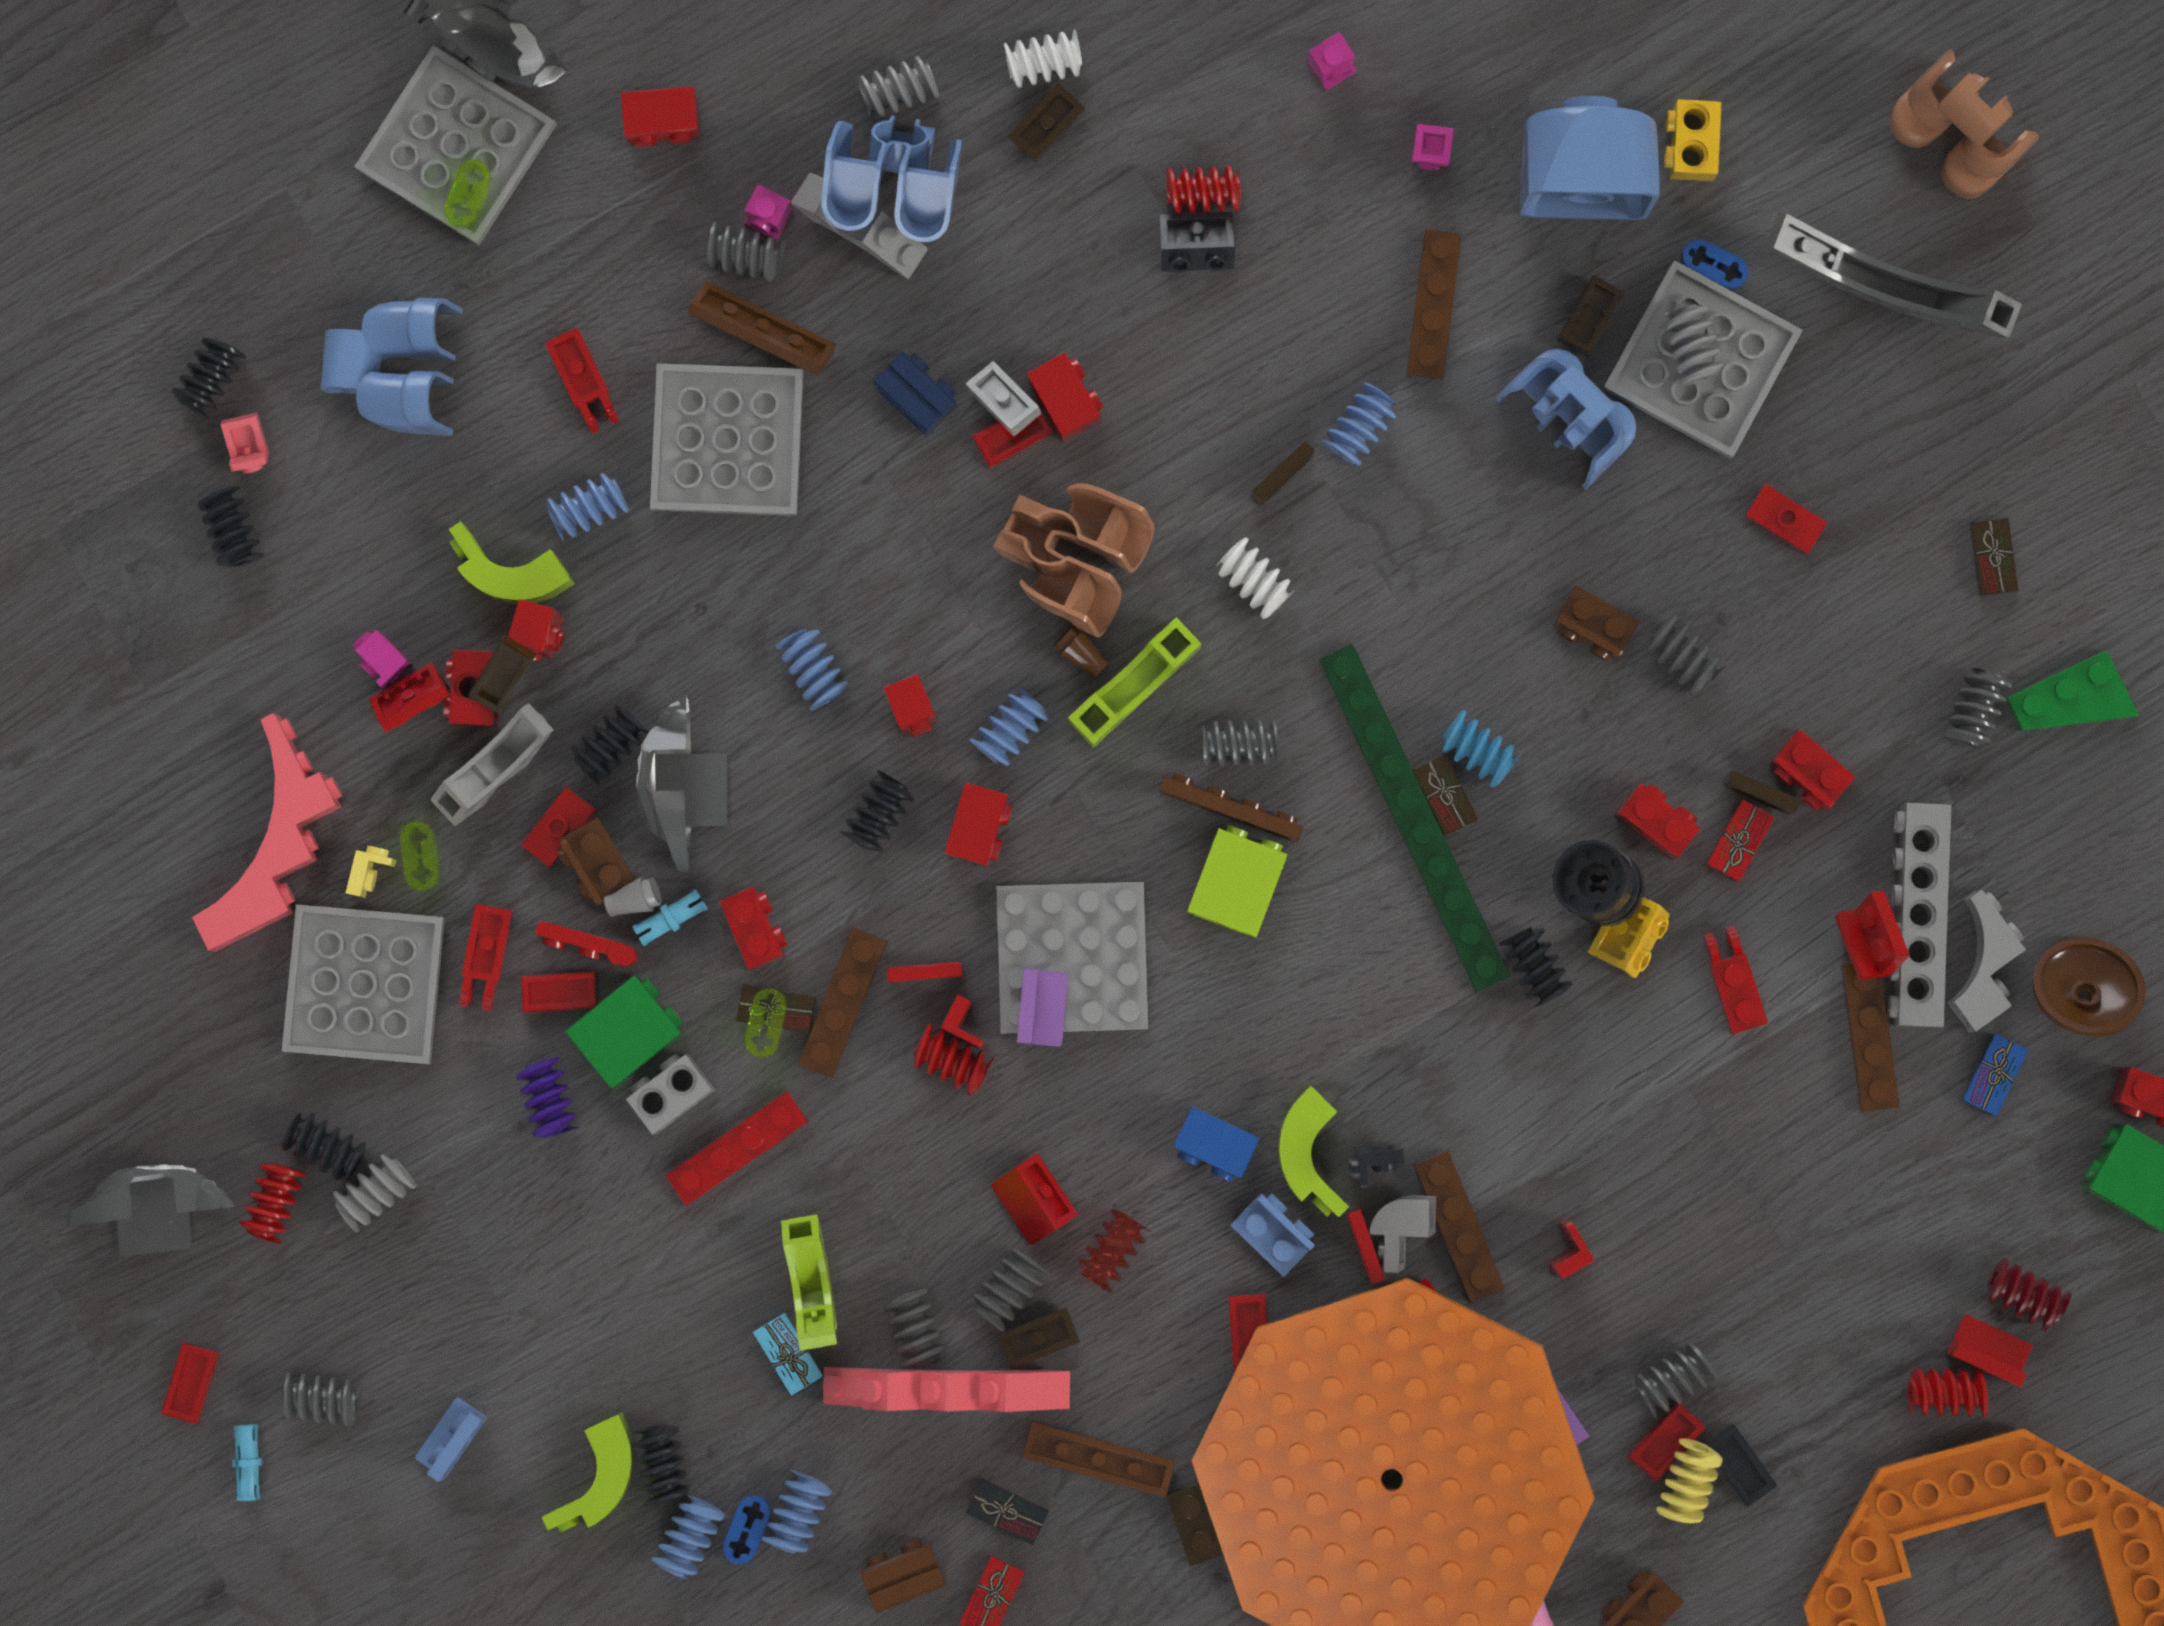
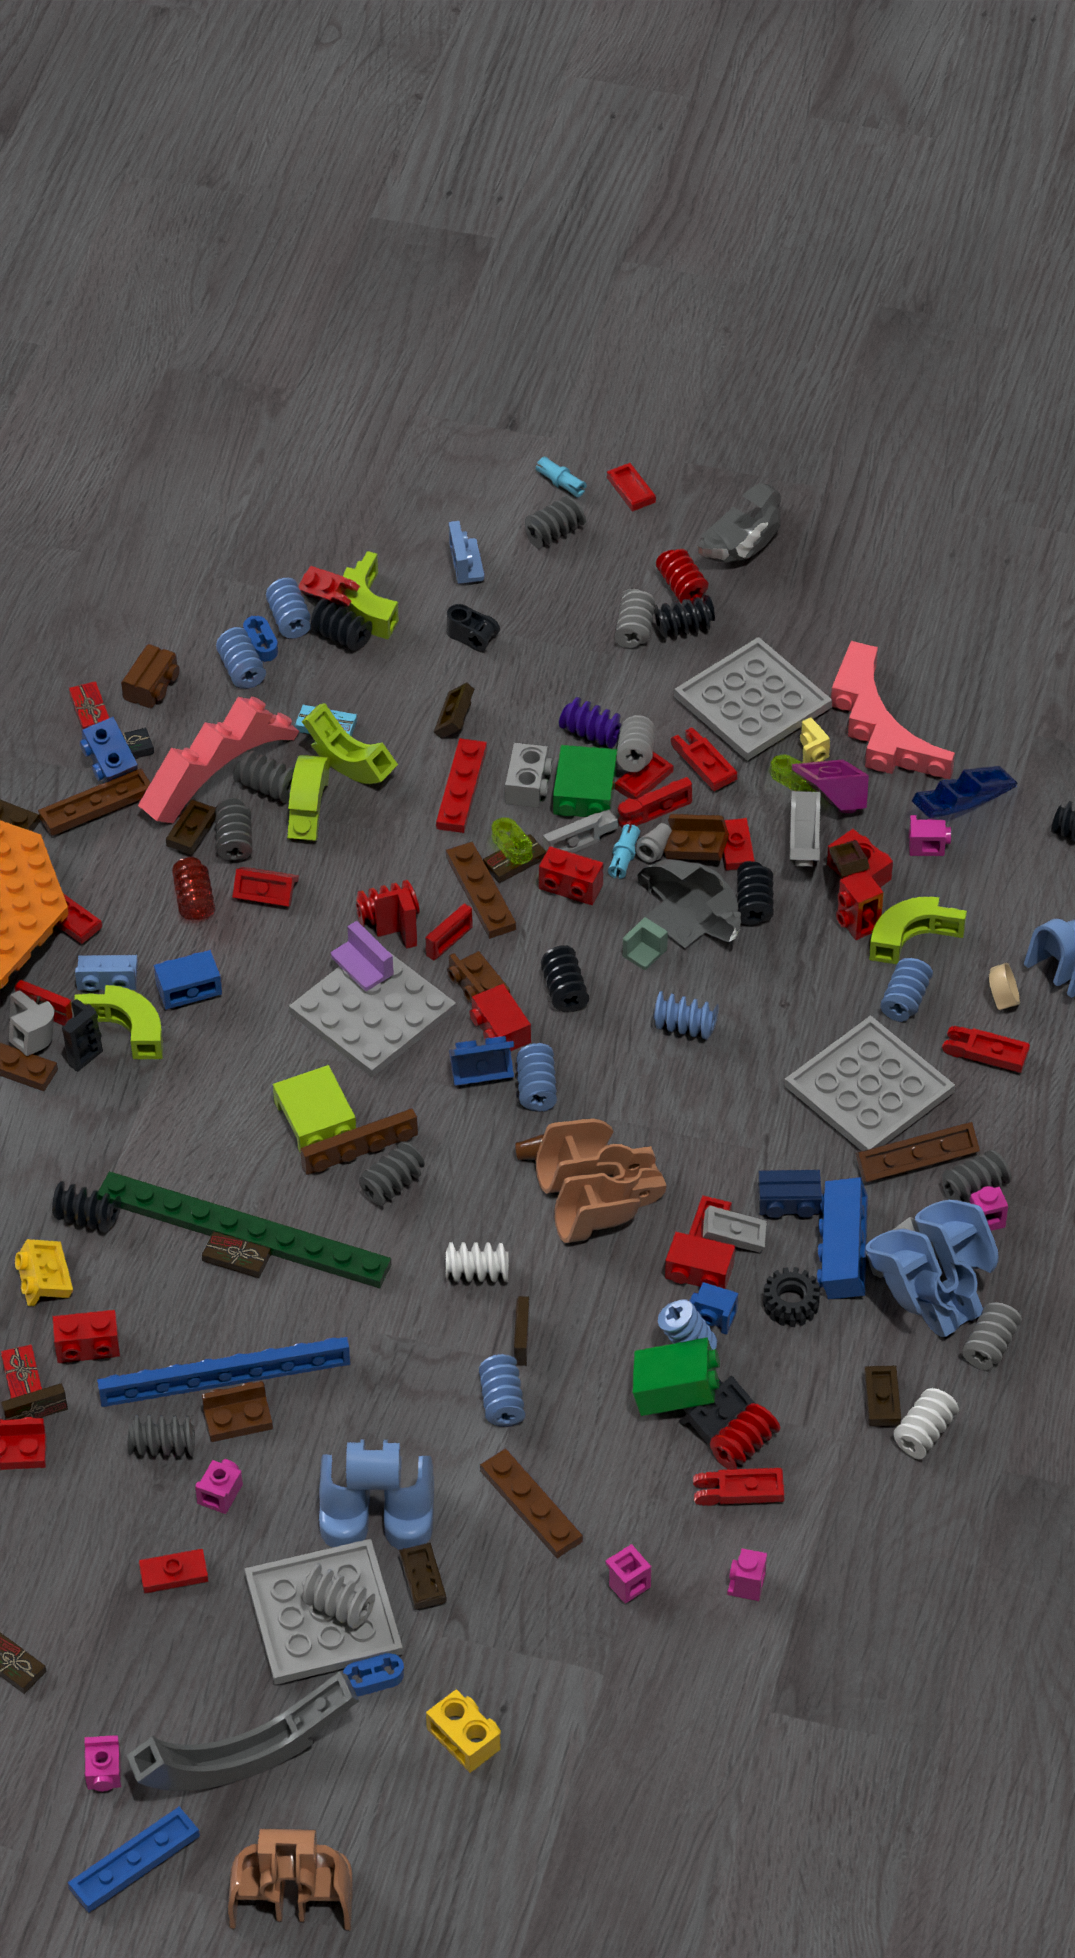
camera: 130 degrees right, 35 degrees down
(294, 673) = (969, 790): none -> clear blue slope
(404, 798) = (837, 783): none -> magenta slope
(409, 697) = (889, 823): red bracket -> none
(500, 424) = (1004, 986): none -> tan hat
(536, 1335) = (469, 626): none -> black piece
(540, 1027) = (635, 743): none -> light grey piece
(629, 1521) = (328, 585): none -> red hinge
(658, 1244) = (454, 710): none -> dark brown plate
(689, 974) = (581, 833): none -> light grey hinge
(763, 786) = (645, 943): none -> sand green panel
(897, 1266) = (306, 791): none -> lime arch
(911, 706) = (605, 1034): red brick -> none
(921, 299) = (843, 1238): none -> blue brick
(948, 895) = (473, 974): none -> reddish brown bracket
(1017, 268) = (789, 1311): none -> black tyre
(1039, 1501) = (107, 750): none -> blue brick
(1044, 785) = (481, 1062): none -> blue bracket
(1098, 340) = (716, 1306): none -> blue brick
(1135, 682) = (488, 1152): lime arch -> none
(1153, 328) = (684, 1323): none -> medium blue piece
(1209, 291) = (675, 1376): none -> green brick
(1249, 149) = (740, 1486): none -> red hinge
(1478, 749) = (240, 1285): dark azure piece -> none
(1579, 877) = (89, 1264): black wheel -> none
(1583, 683) = (224, 1371): none -> blue plate
(1589, 162) = (513, 1626): medium blue piece -> none
(1666, 573) = (219, 1486): none -> dark pink brick
(2000, 394) = (102, 1763): none -> dark pink brick
(2055, 275) = (133, 1859): none -> blue plate

